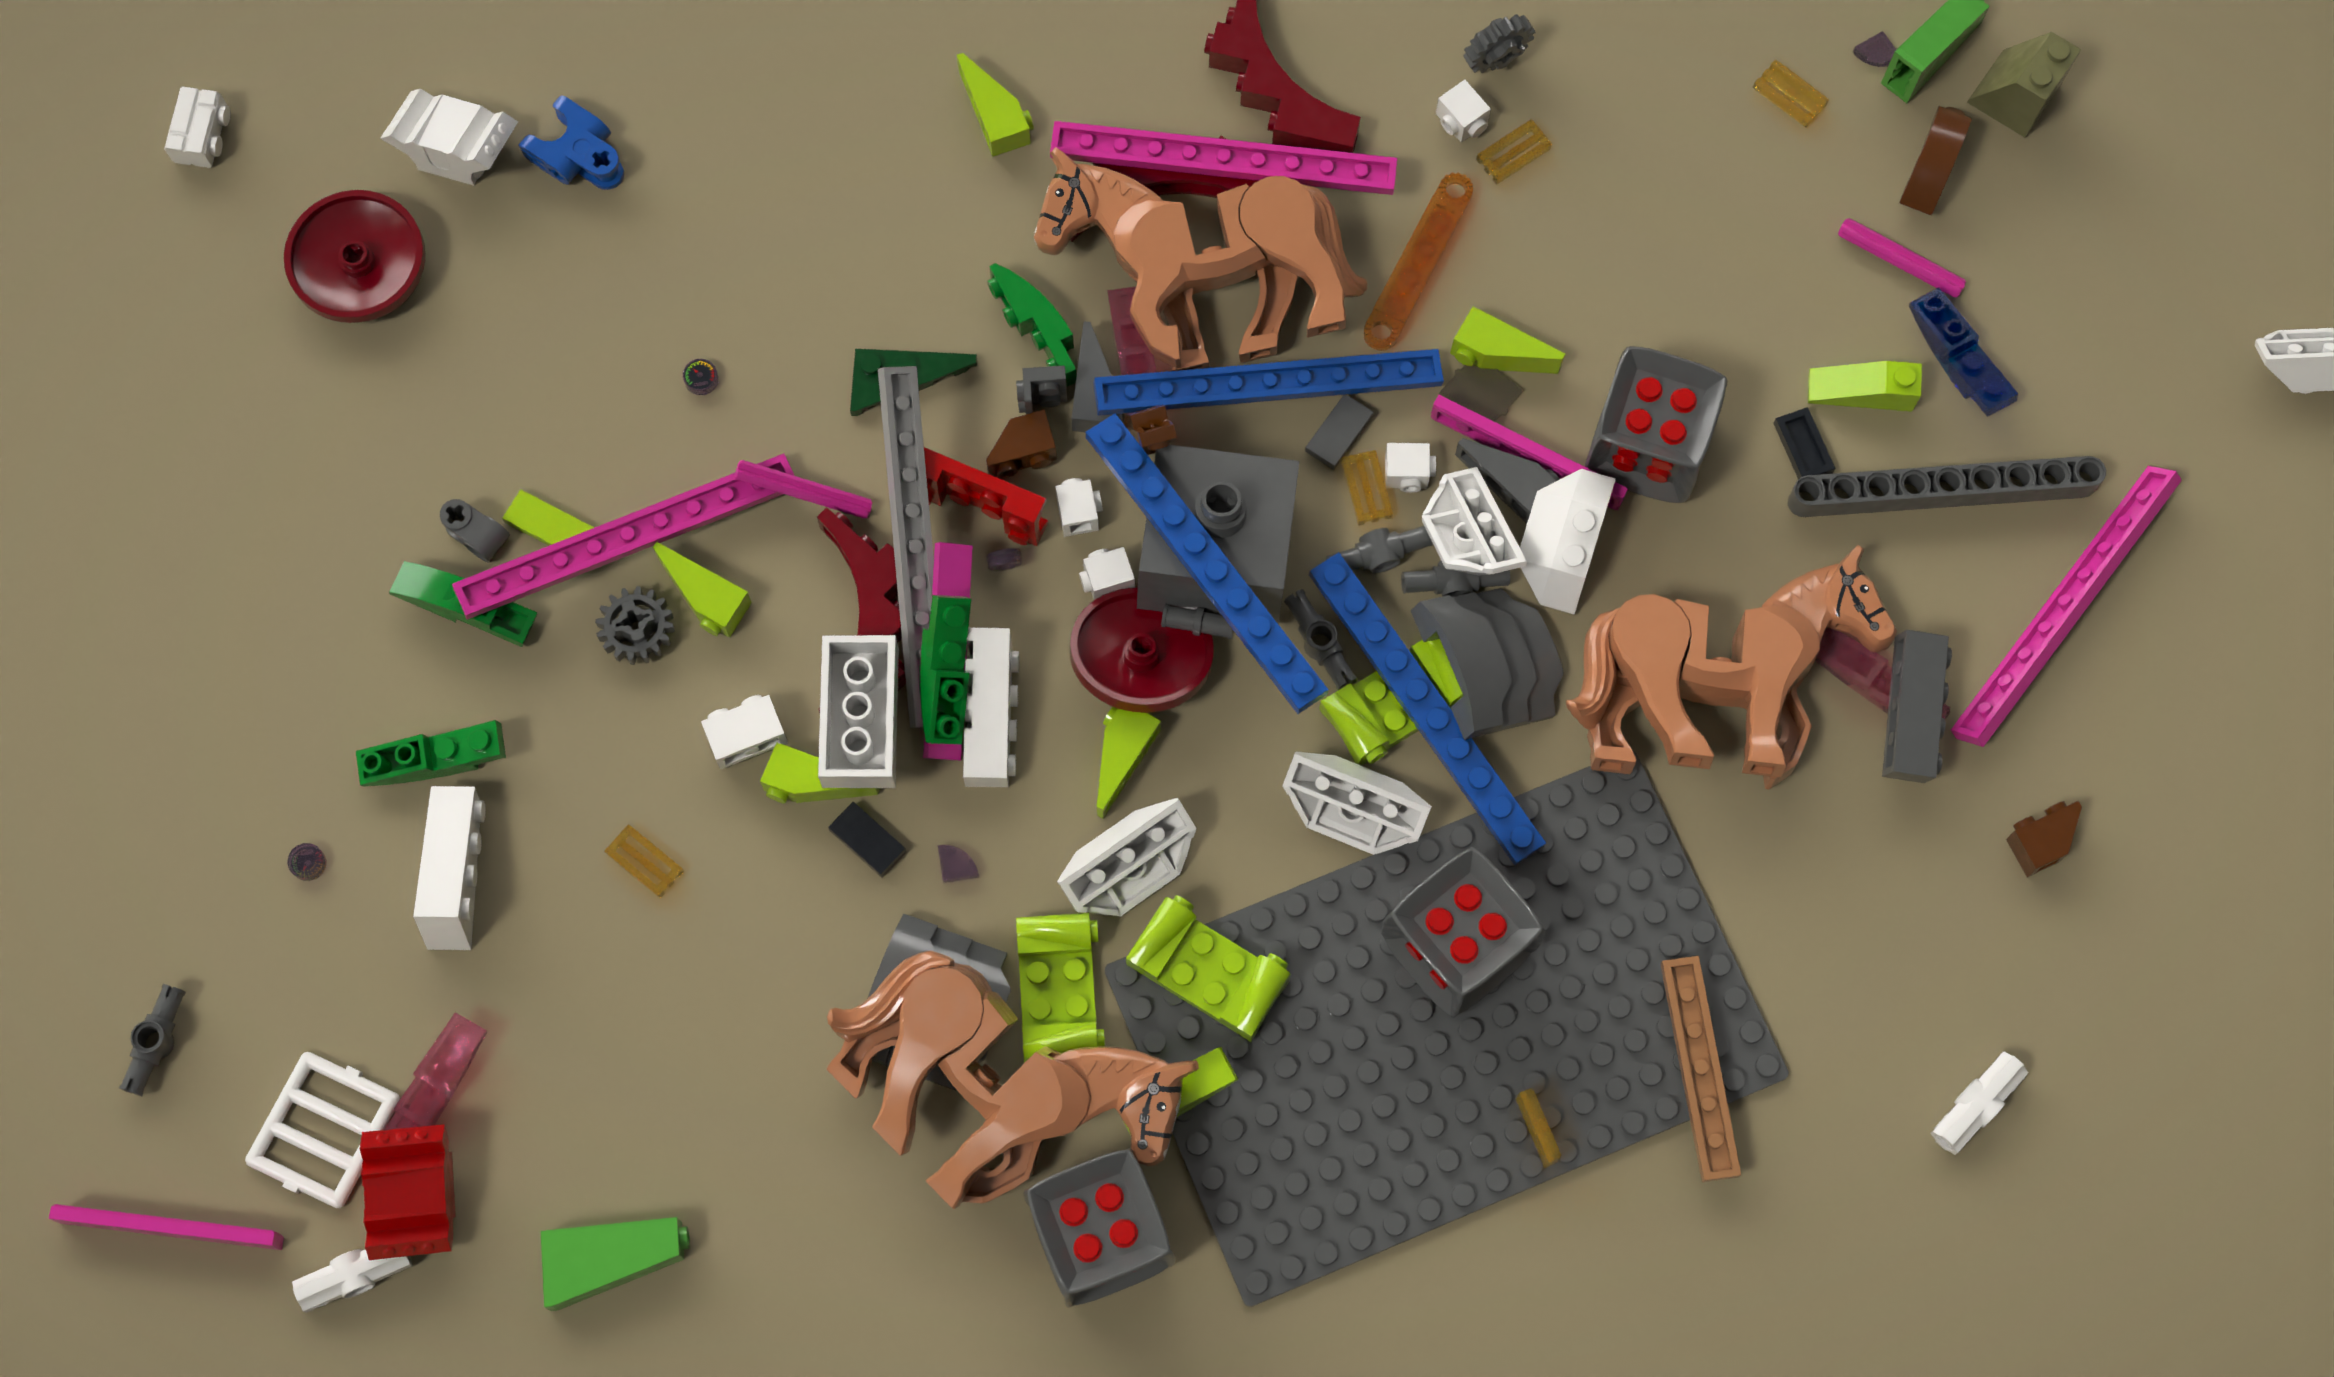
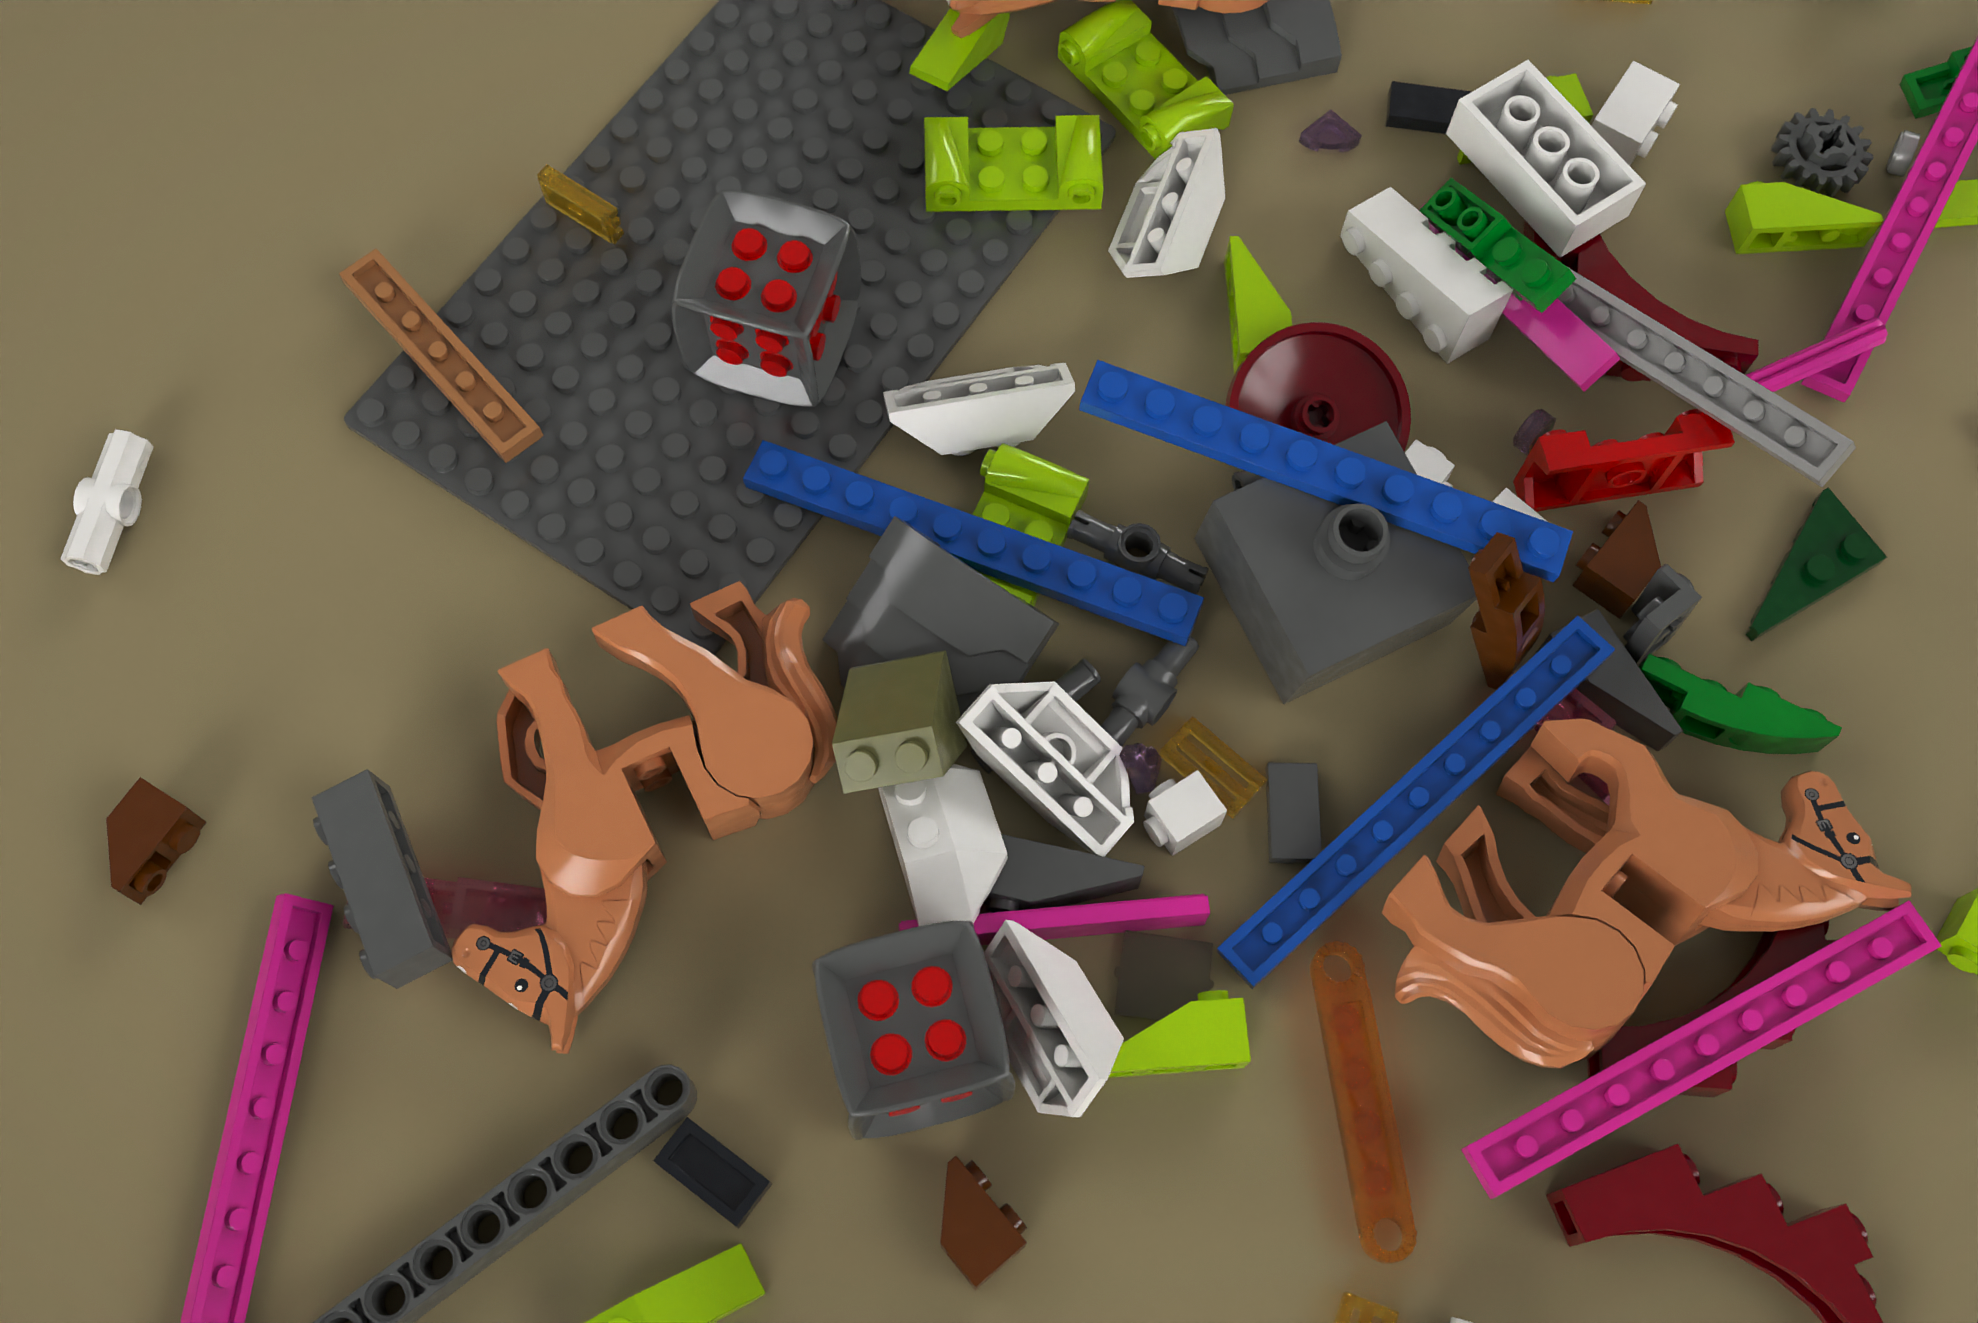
camera: 145 degrees right, 5 degrees down
(580, 590) = (1902, 153): none -> light grey tile
(1414, 506) = (1141, 765): none -> tile
(1555, 599) = (897, 723): none -> olive slope
(1572, 385) = (1051, 1021): none -> white wedge
(1677, 321) = (974, 1229): none -> reddish brown slope

